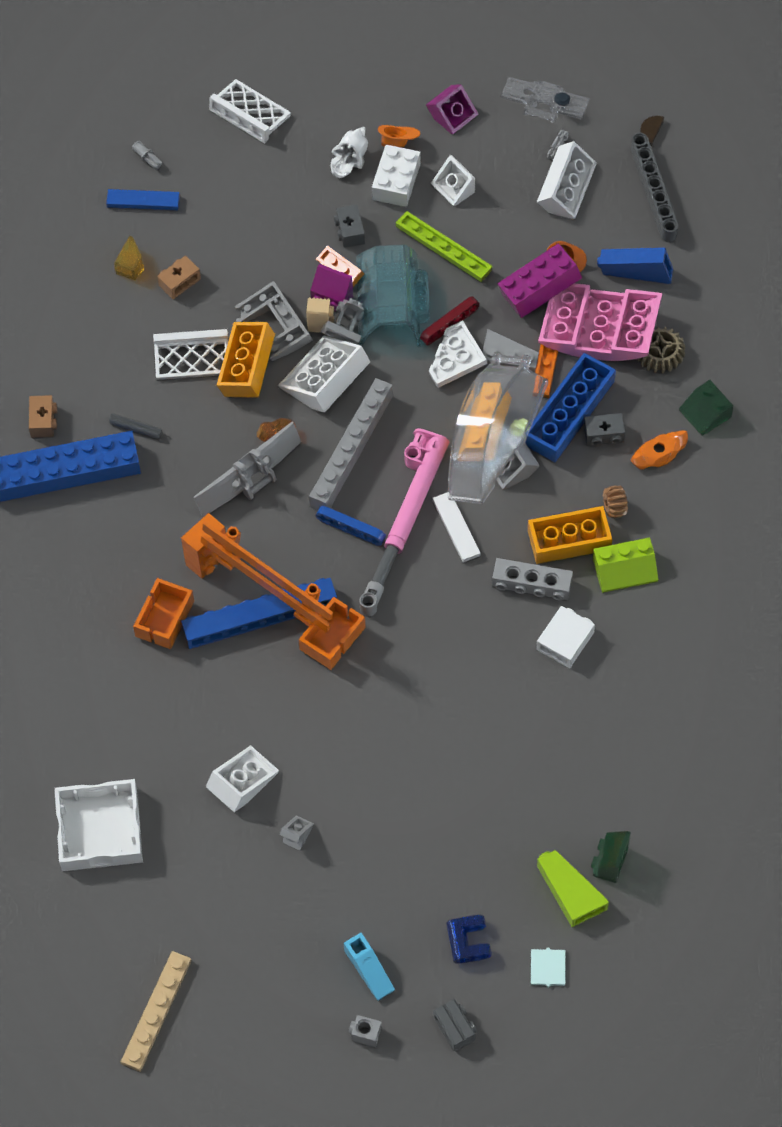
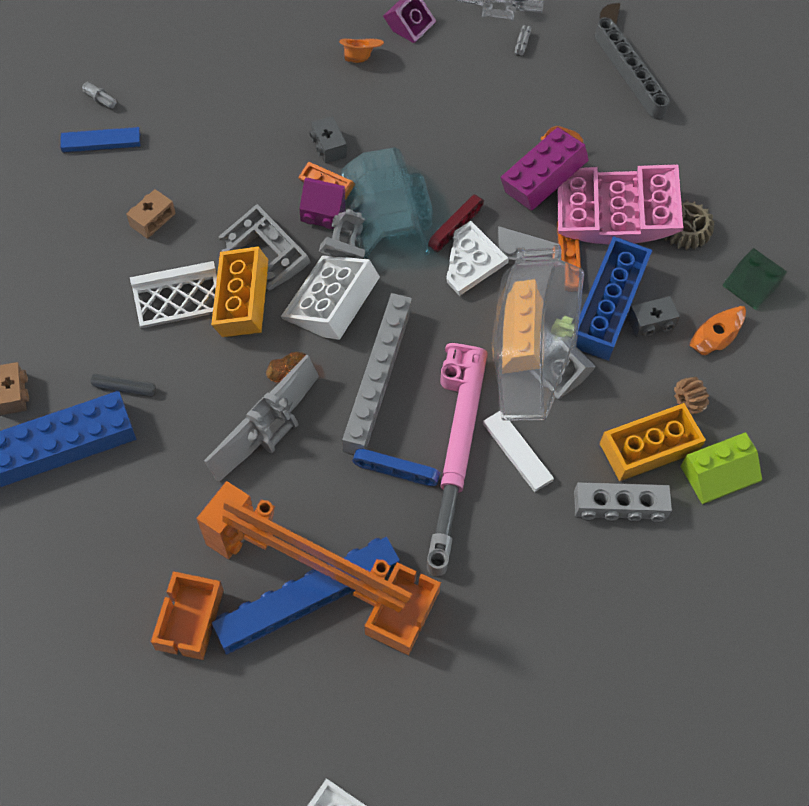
camera: 15 degrees left, 0 degrees up
(129, 260) = (92, 203): clear yellow slope -> none
(241, 117) = (199, 49): white fence -> none
(318, 313) = (314, 231): tan brick -> none
(349, 153) = (314, 67): white head -> none
(396, 175) = (366, 85): white brick -> none
(444, 246) = (432, 148): lime plate -> none
(454, 181) = (428, 83): white slope -> none
(565, 636) = (680, 567): white brick -> none
(567, 181) = (542, 71): white slope -> none
(637, 263) = (637, 141): blue slope -> none

